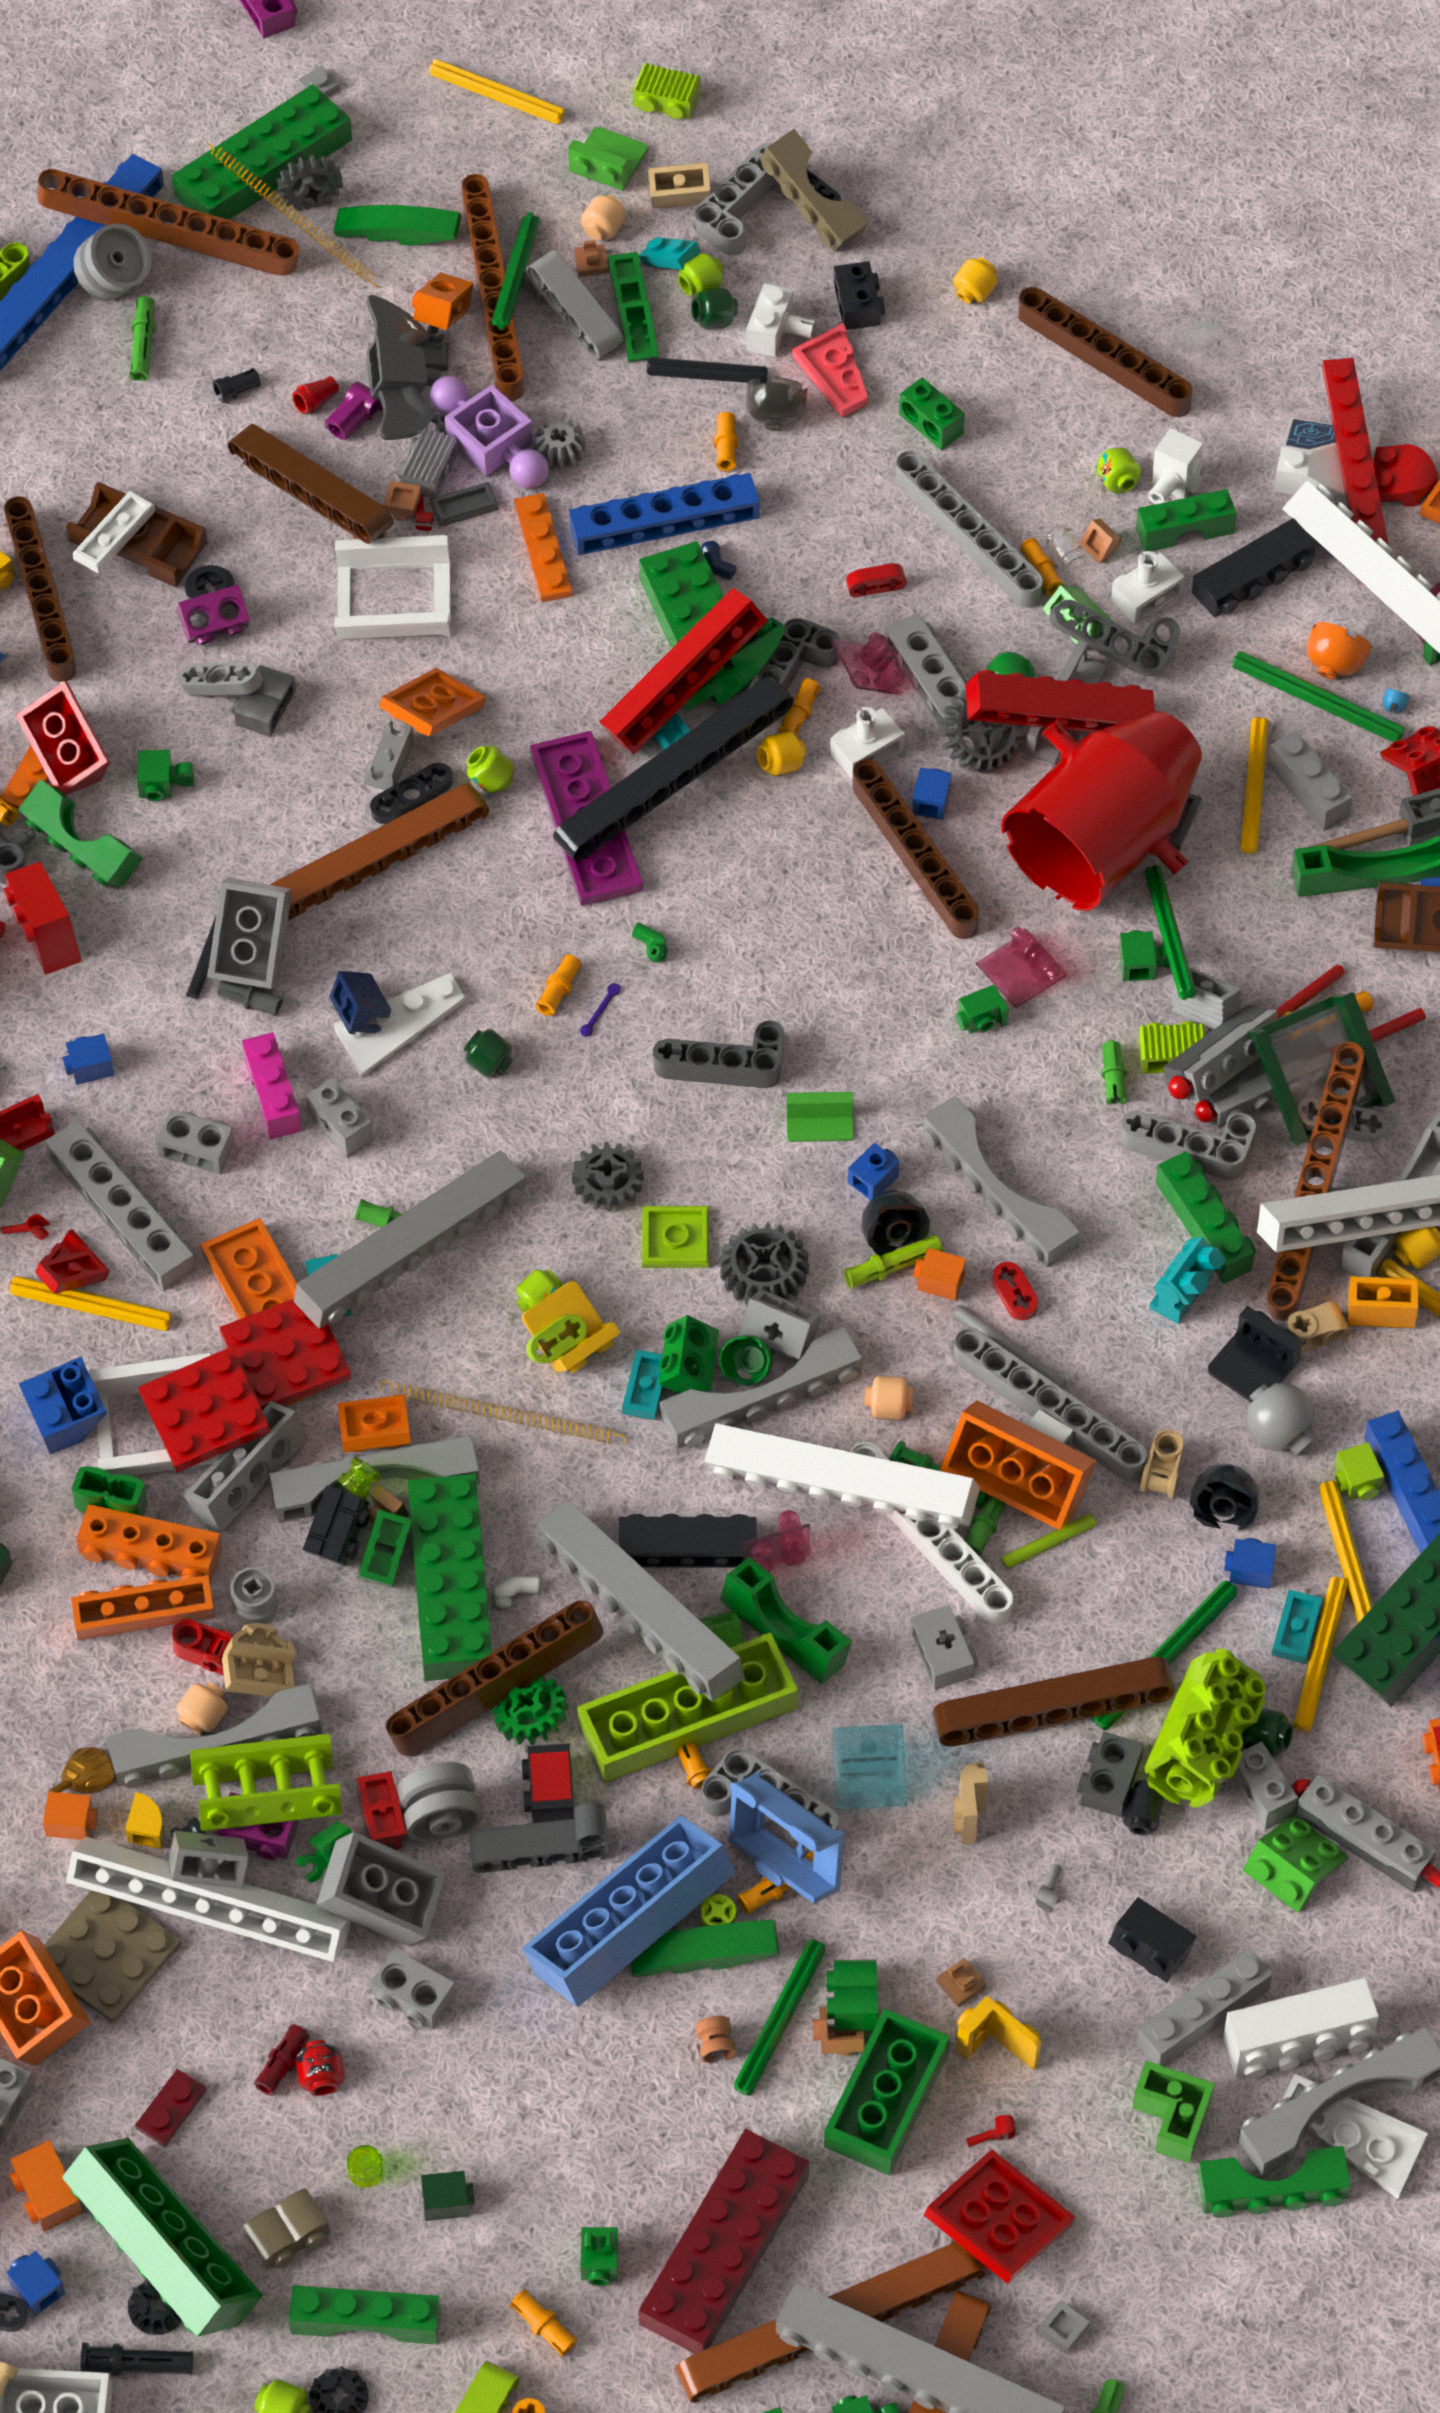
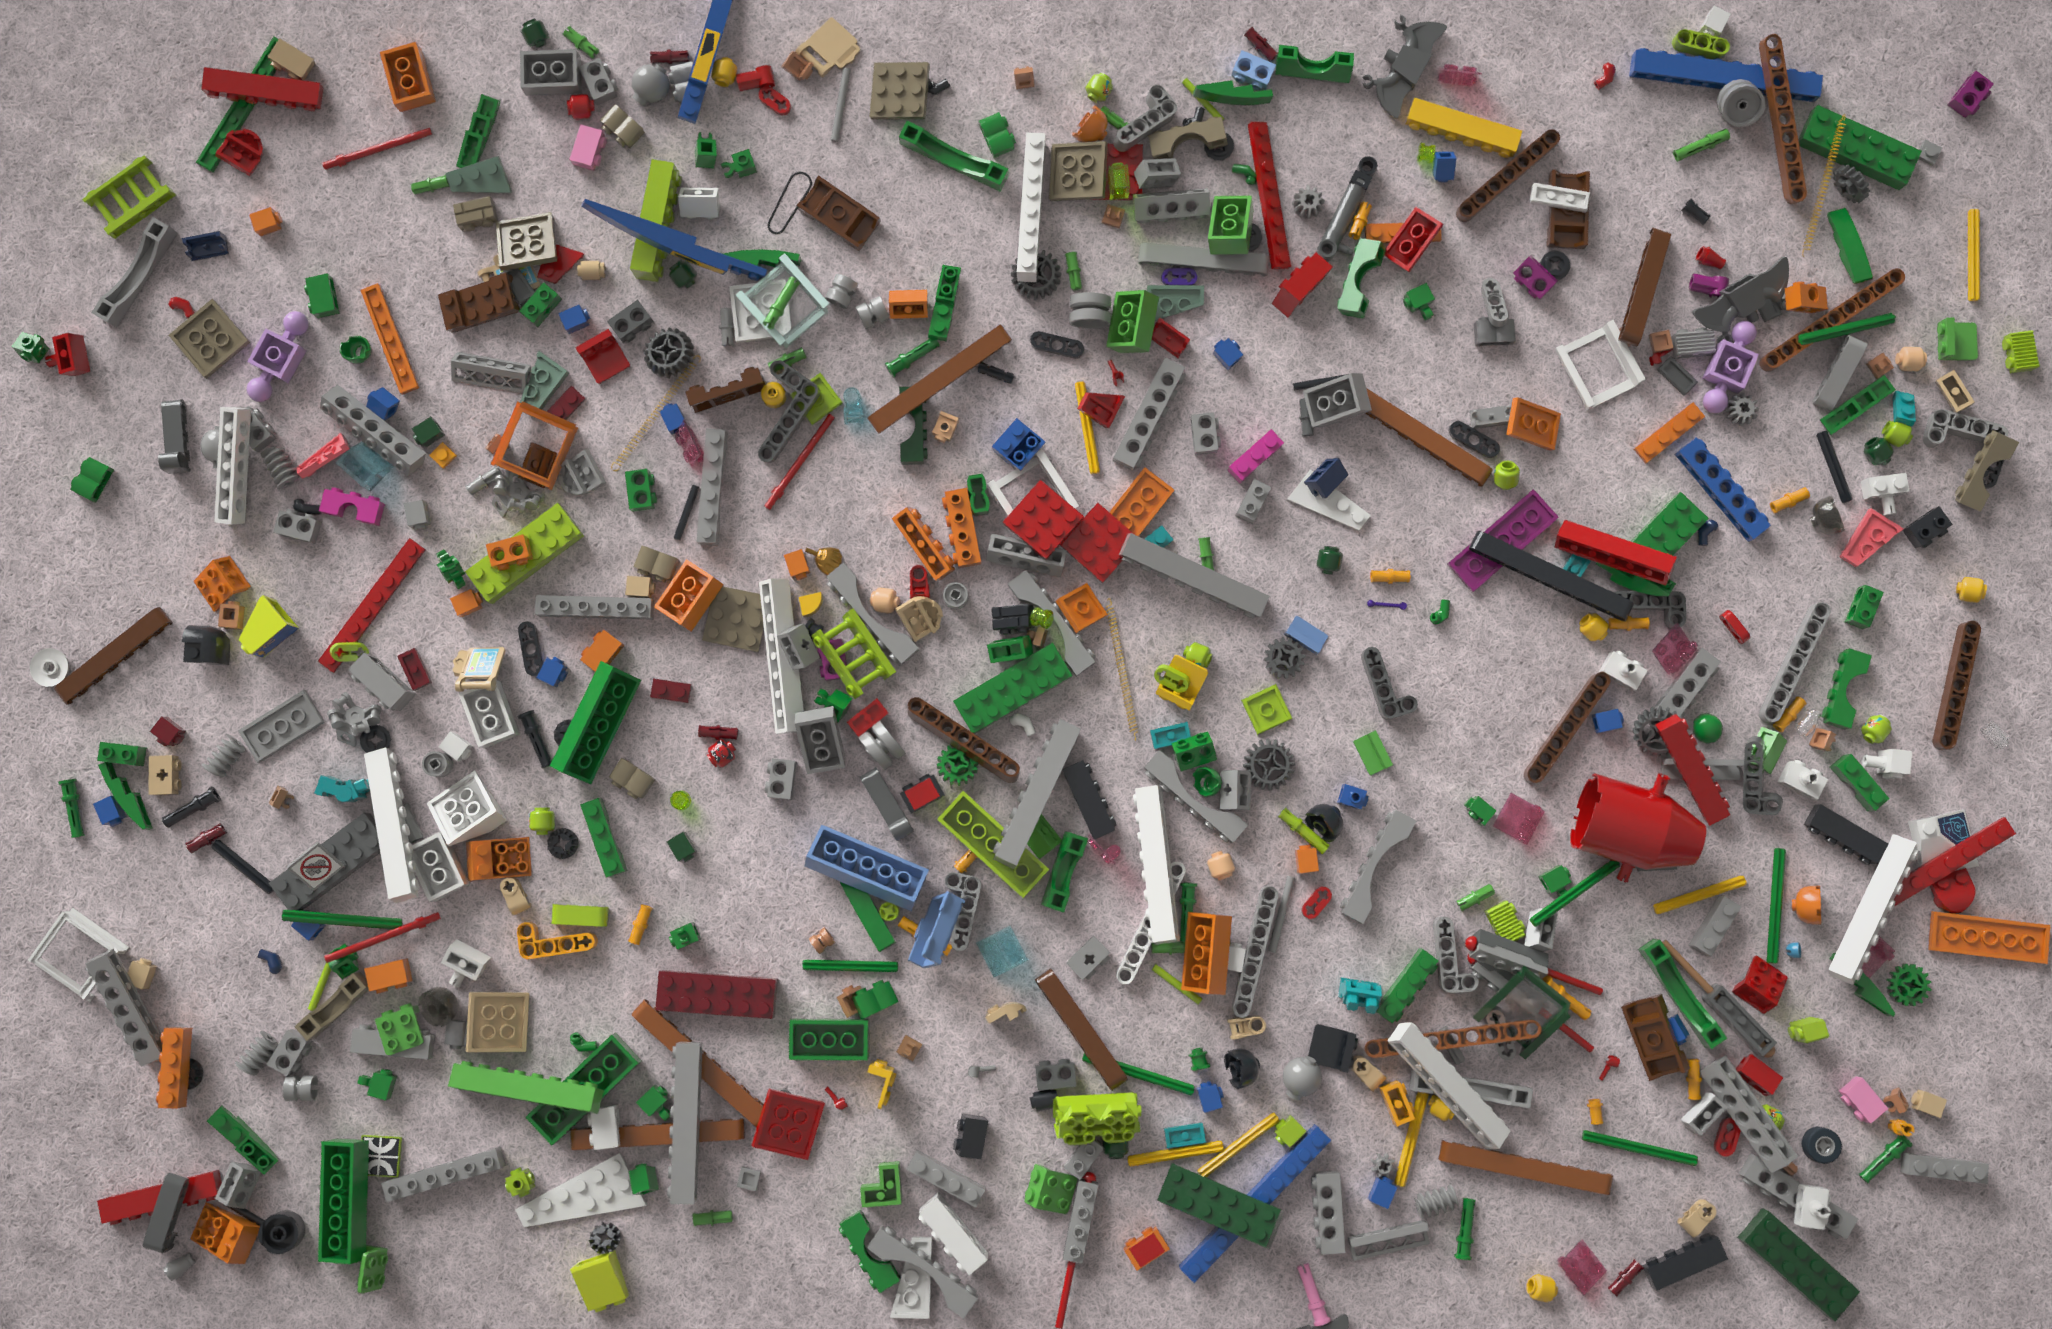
camera: 65 degrees right, 25 degrees up
(591, 1130) = (1306, 635): none -> medium blue panel
(1067, 503) = (1839, 711): none -> green arch
(1184, 1554) = (1199, 1059): none -> green brick

